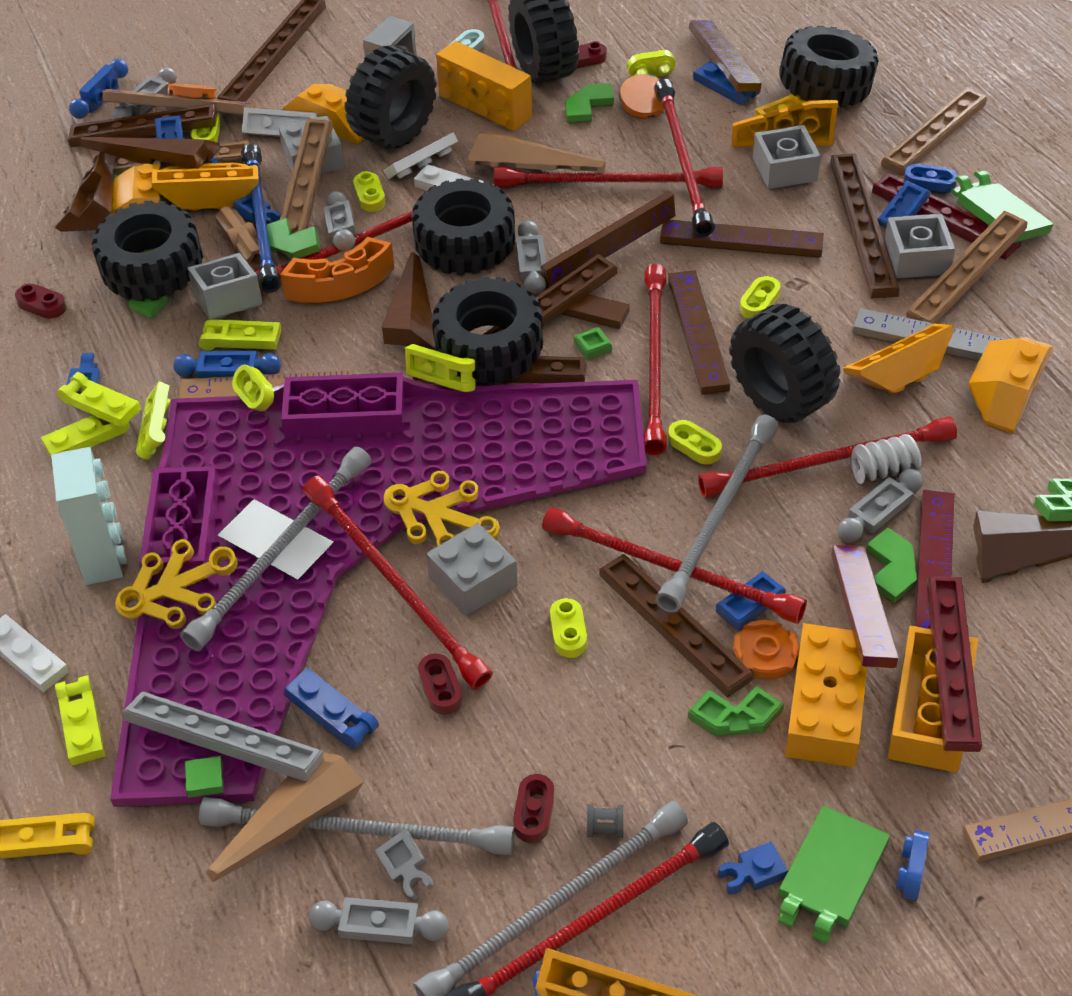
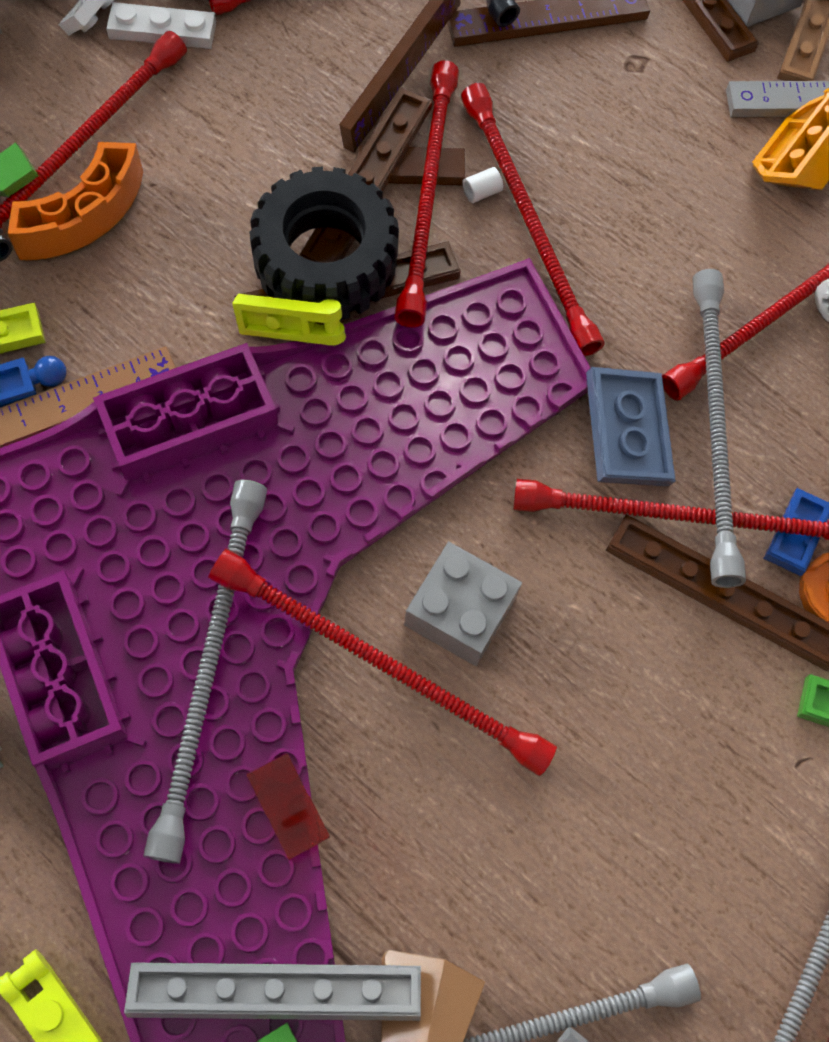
camera: 30 degrees left, 20 degrees up
(172, 584) = (94, 786): yellow plant -> none
(253, 388) = (58, 431): neon yellow plate -> none
(260, 526) = (168, 643): white sticker -> none
(287, 640) = (287, 806): none -> clear red slope
(330, 708) = (382, 878): plate -> none
(340, 221) = (40, 120): light grey plate -> none
(369, 191) = (50, 57): neon yellow plate -> none
(410, 310) = (203, 245): reddish brown wedge -> none
(436, 509) = (381, 536): yellow plant -> none
(440, 686) = (501, 784): dark red plate -> none
(486, 228) = (205, 53): black tyre -> none
(531, 257) = (313, 110): light grey plate -> none
(532, 380) = (411, 303): none -> red hose
(533, 810) = (698, 922): dark red plate -> none
(568, 621) = (606, 641): neon yellow plate -> none
(593, 343) = (447, 217): bright green tile -> none
(595, 827) = (785, 909): dark grey bush -> none
(630, 329) = (483, 185): none -> white hinge
(655, 500) = (630, 427): none -> sand blue tile
(694, 442) = (633, 326): neon yellow plate -> none
(698, 332) = (561, 165): reddish brown tile -> none
(759, 296) = (611, 97): neon yellow plate -> none
(785, 363) = (715, 194): black tyre -> none

